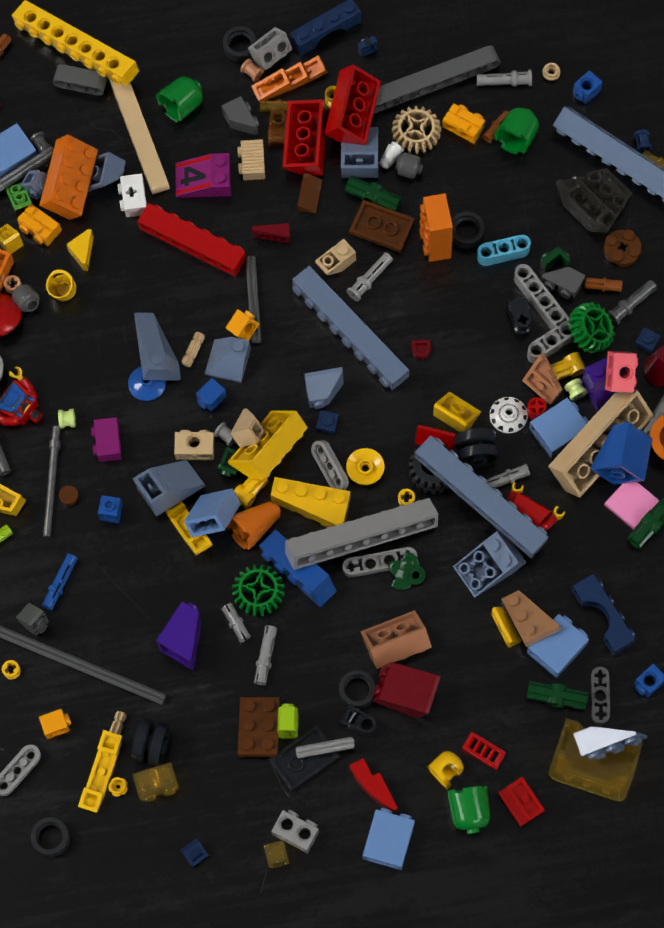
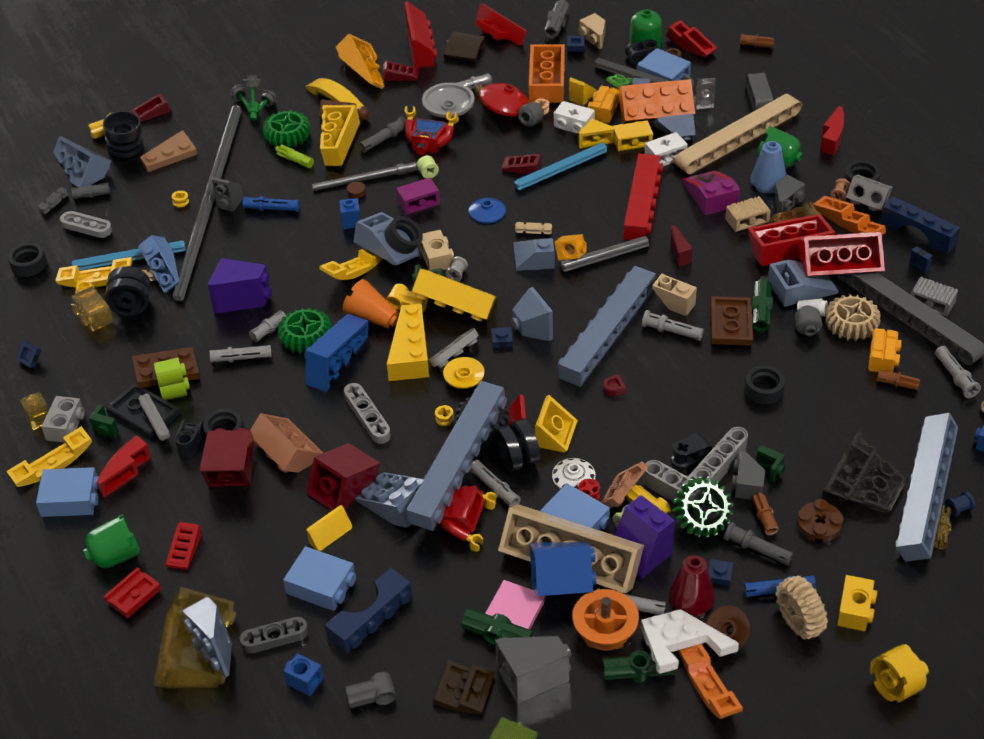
camera: 70 degrees right, 25 degrees down
(49, 258) = (572, 117): none -> white brick
(55, 723) = (133, 233): light orange brick -> none
(61, 285) = (550, 129): yellow helmet -> none
(71, 126) = (705, 93): none -> clear slope
(75, 43) = (787, 73): yellow brick -> none
(81, 736) = (107, 259): none -> dark azure axle
(98, 215) = (632, 135): none -> yellow brick
(98, 314) = (522, 164): none -> dark red slope
(113, 296) = (560, 166): none -> dark azure axle
(115, 703) = (161, 261): none -> medium blue slope
(156, 355) = (517, 200): sand blue wedge -> none
(168, 40) = (833, 132): none -> red slope
(177, 457) = (410, 228): none -> black tyre
(206, 119) = (768, 168): none -> medium blue cone
(211, 395) = (491, 248): blue brick -> none
(212, 512) = (366, 268): medium blue brick -> none
(247, 429) = (465, 274): tan slope -> none
(309, 194) = (736, 261): reddish brown slope -> none
(318, 795) = (103, 424): none -> dark green bracket
(341, 849) = (59, 458): none -> yellow slope
(361, 533) = (385, 378): light grey brick -> none
(403, 571) = (362, 433): dark green plate -> none
(415, 56) = (935, 295): none -> light grey brick
(436, 227) = (741, 339): orange brick -> none
(446, 767) = (159, 518): yellow helmet -> none
(454, 600) = (341, 476): none -> dark red slope
(497, 256) = (757, 418): medium azure beam -> none
(517, 130) = (902, 389): green cylinder -> none
(529, 618) = (339, 540): medium nougat wing -> none
(557, 695) = (262, 593): dark green piece -> none
(615, 362) = (634, 520): coral brick -> none

